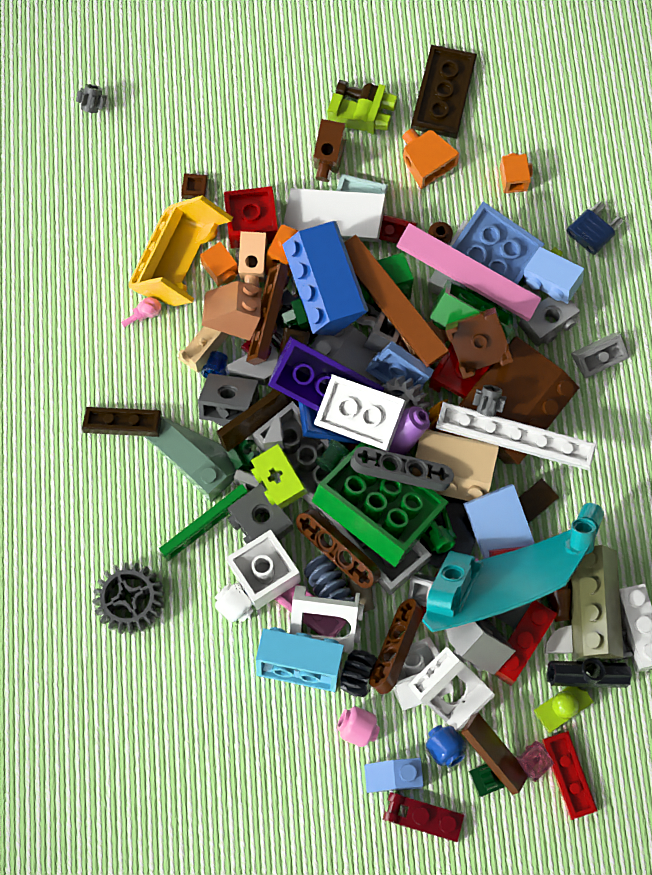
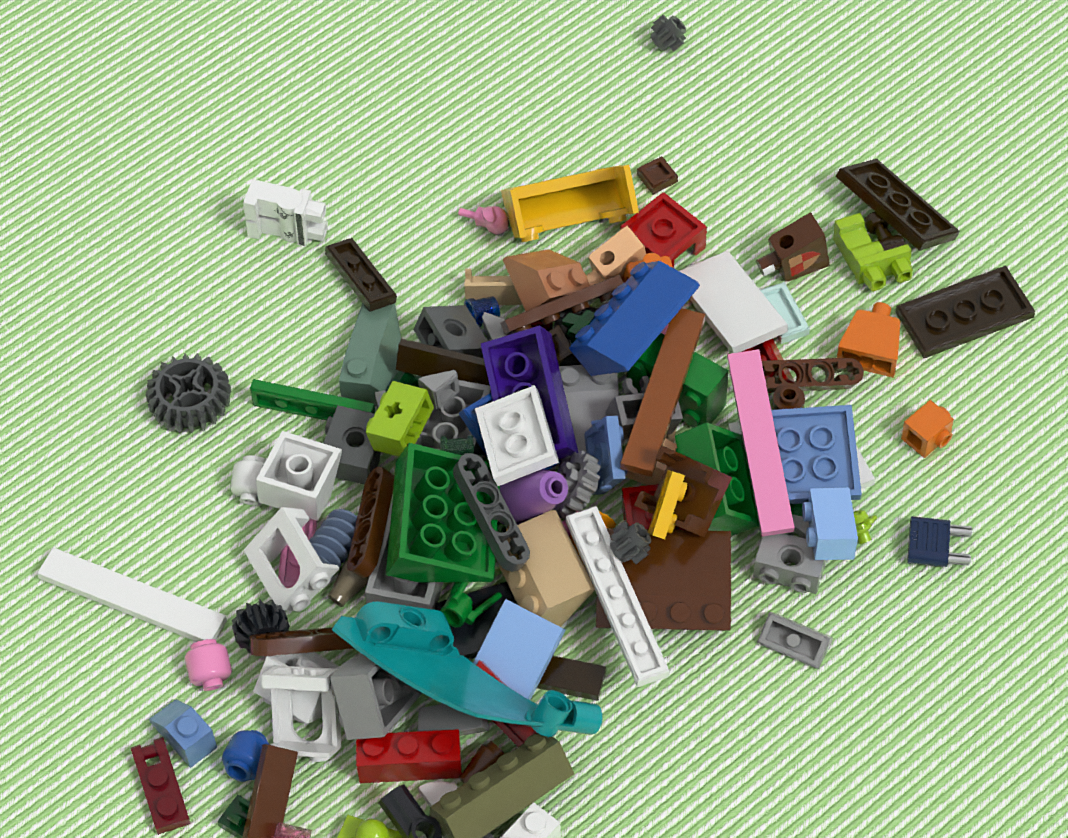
camera: 55 degrees right, 15 degrees down
(36, 436) = (284, 213): none -> white hips
(219, 264) = (586, 238): orange brick -> none
(261, 743) = (131, 596): none -> white tile
(299, 659) = (232, 560): medium azure slope -> none
(340, 68) = (897, 204): none -> dark brown tile
(422, 211) = (804, 378): none -> reddish brown beam
(483, 359) = (671, 492): none -> yellow plate

